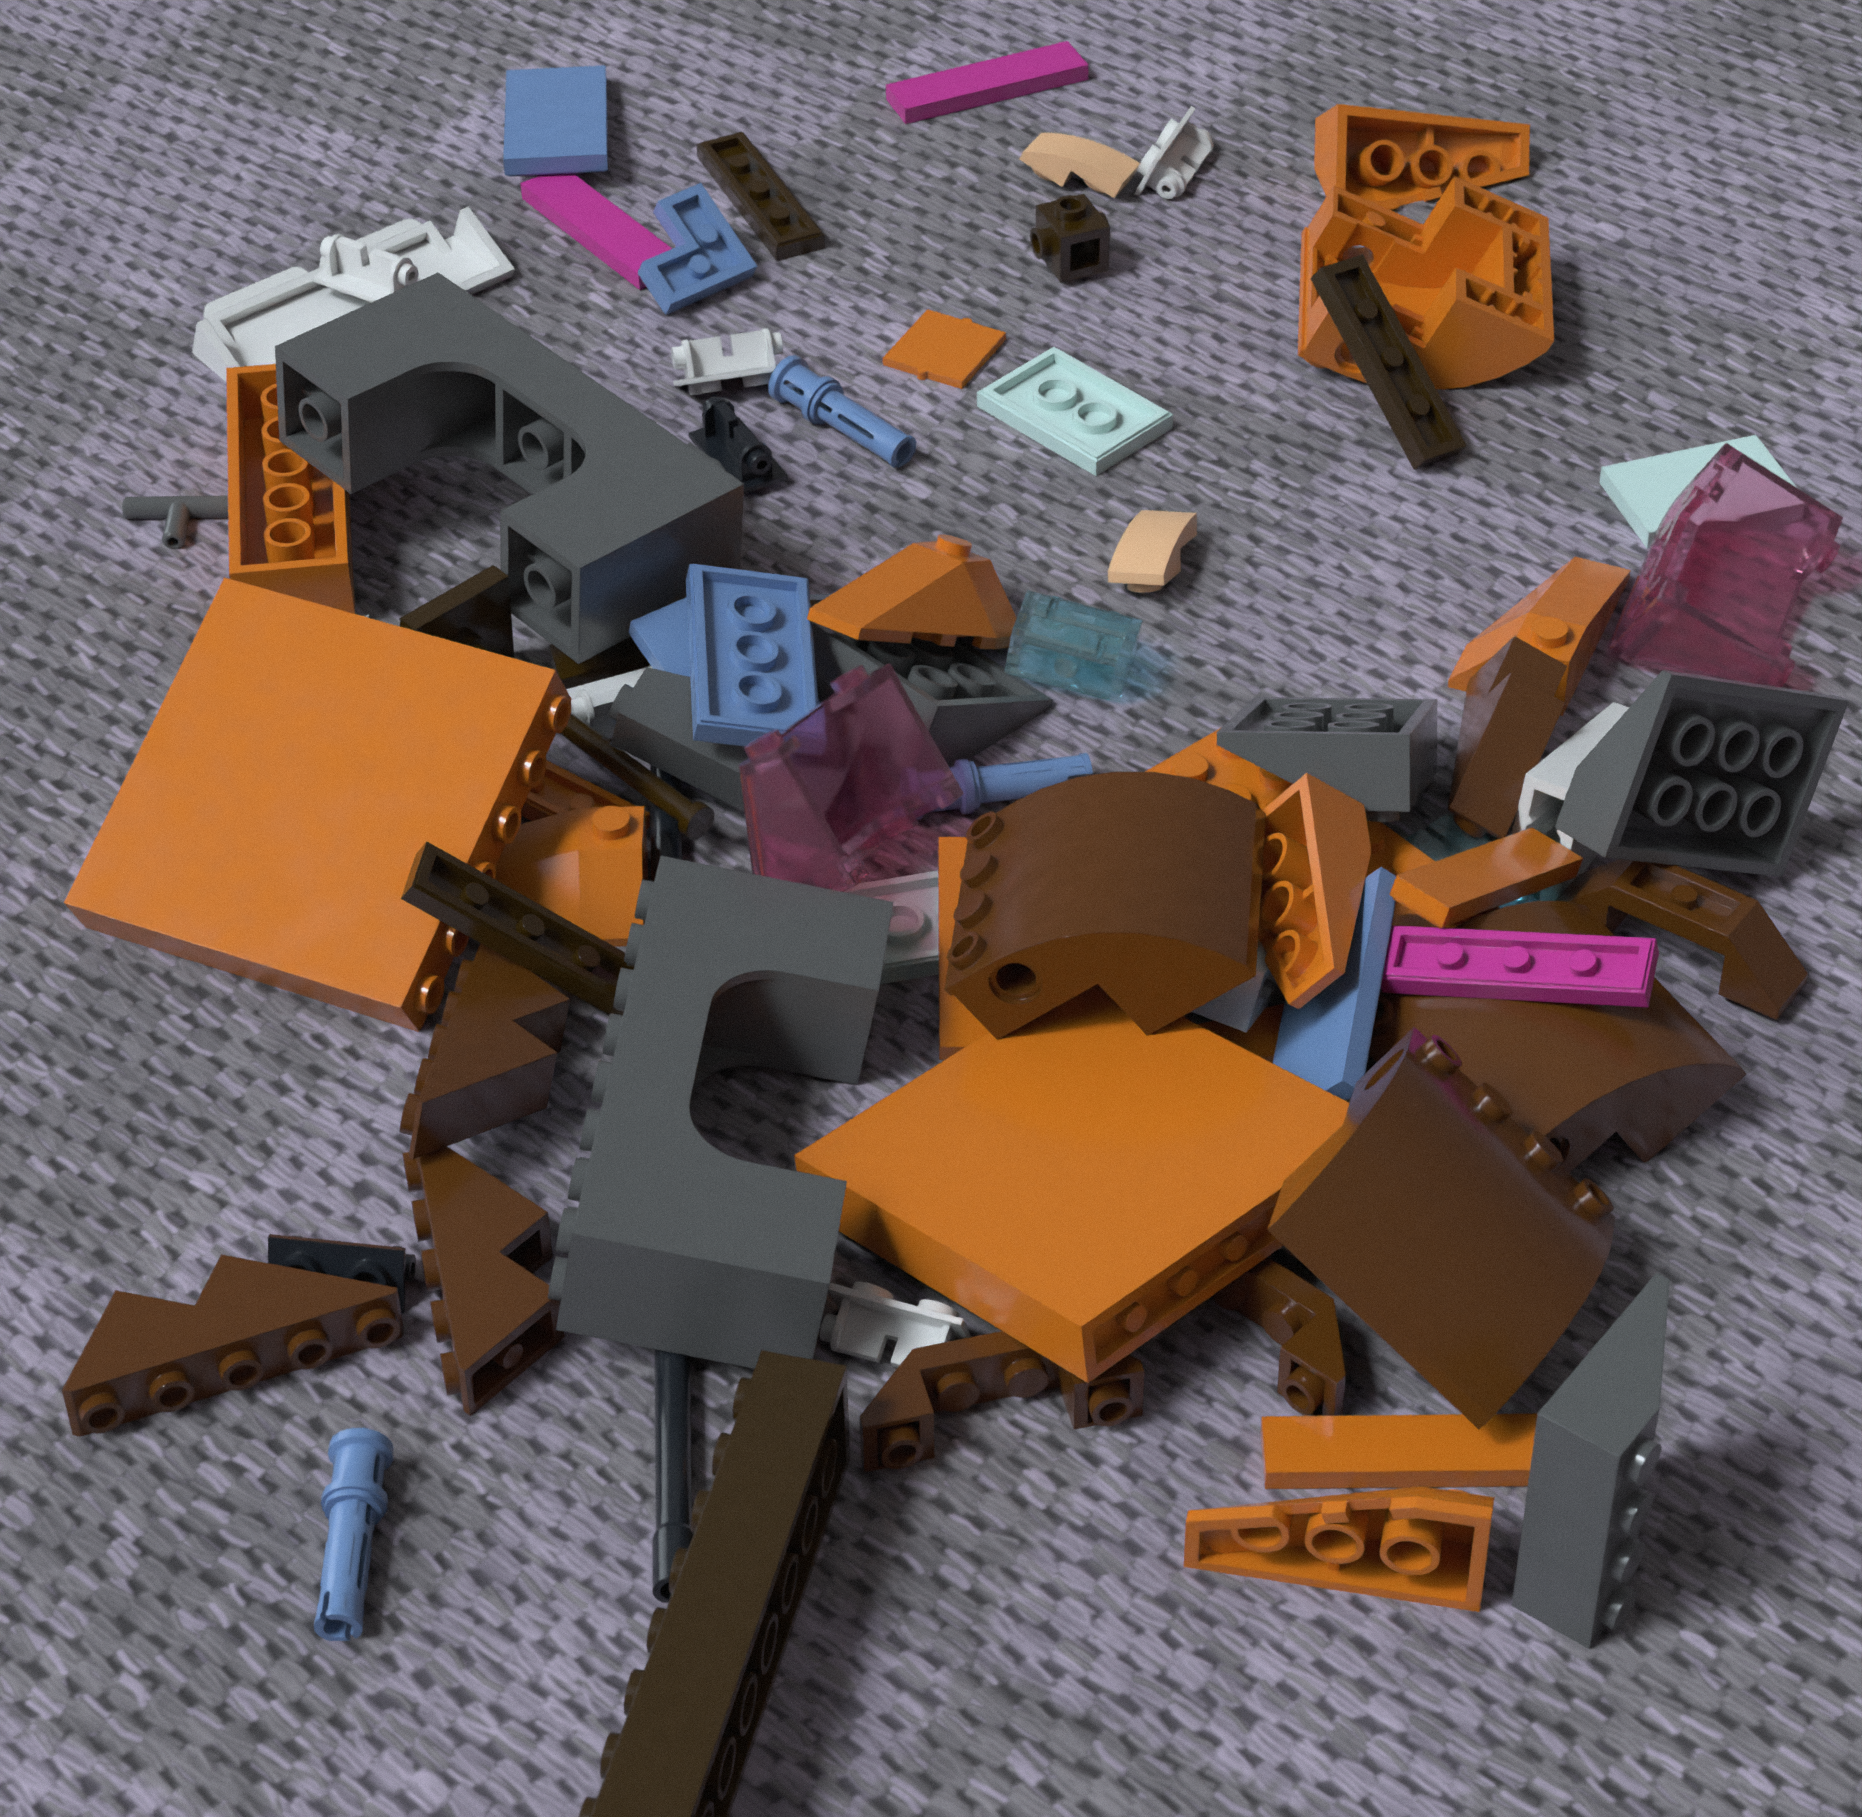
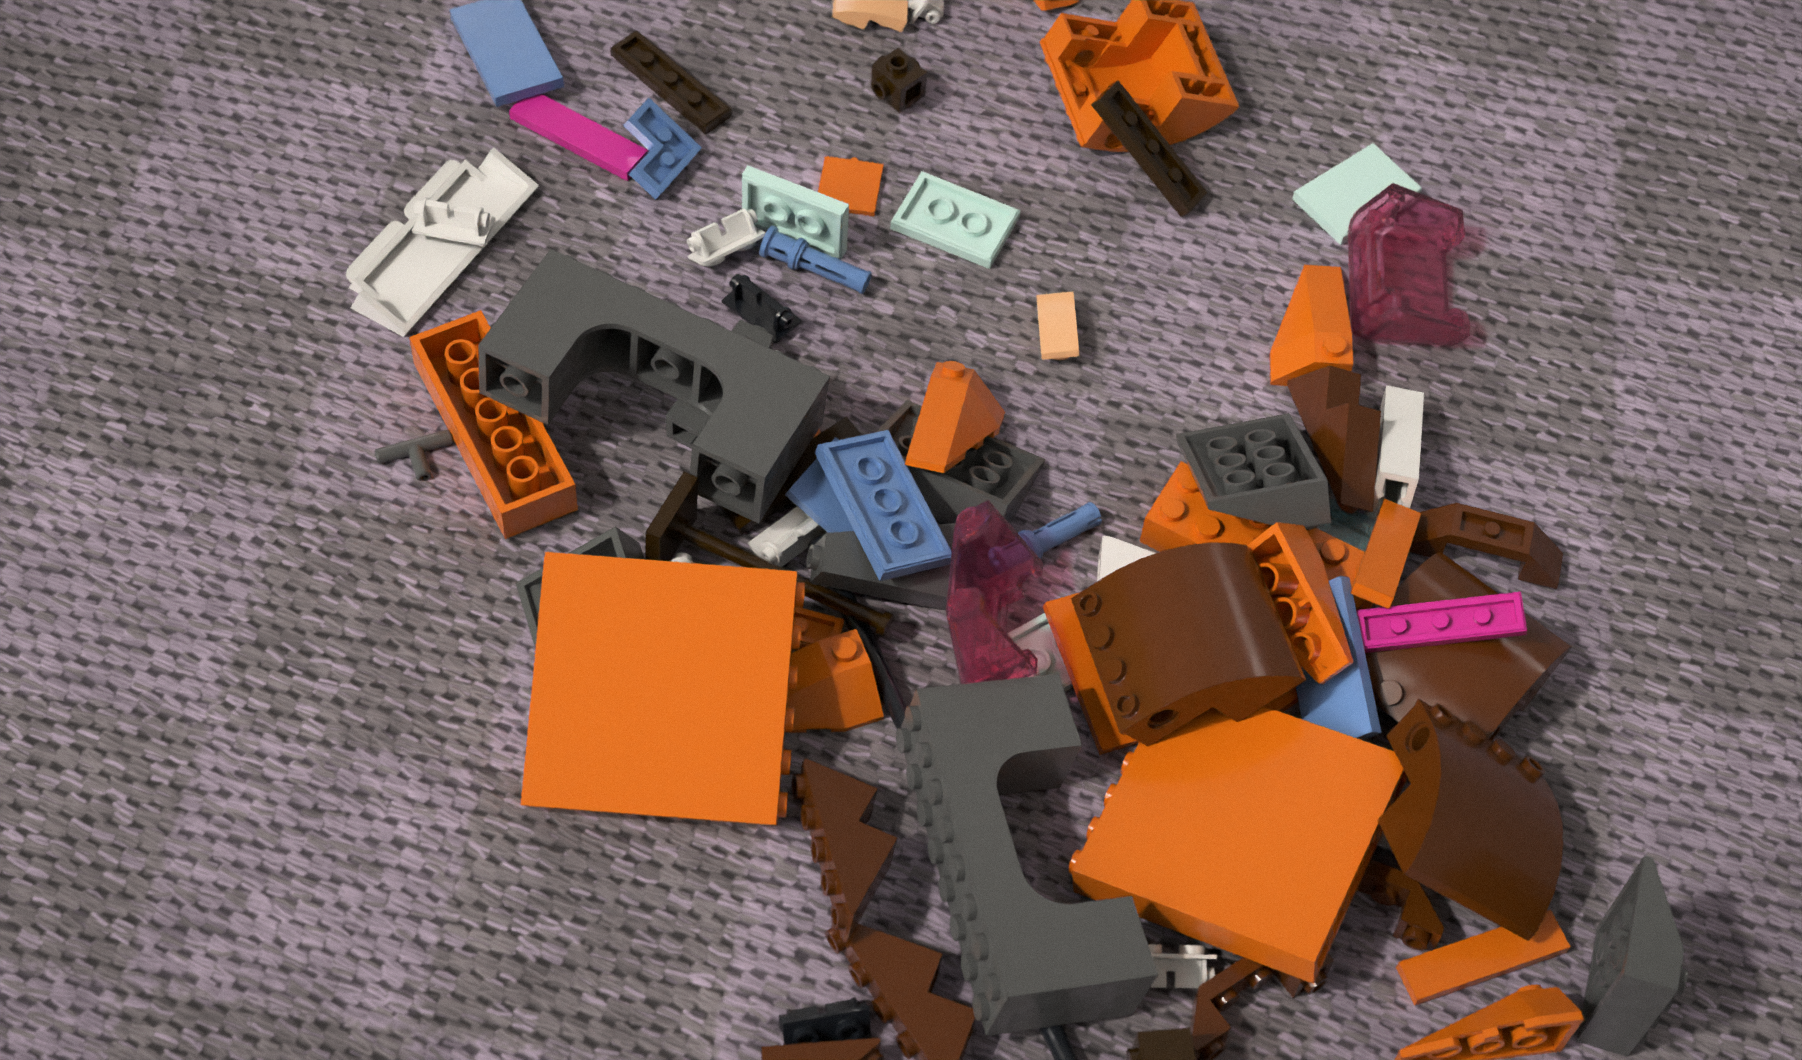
camera: 25 degrees left, 15 degrees up
(515, 926) = (831, 750): dark brown tile -> none
(838, 340) = (796, 211): none -> light aqua tile
(1073, 646) = (1048, 420): clear light blue brick -> none
(1704, 775) = (1482, 458): dark grey slope -> none

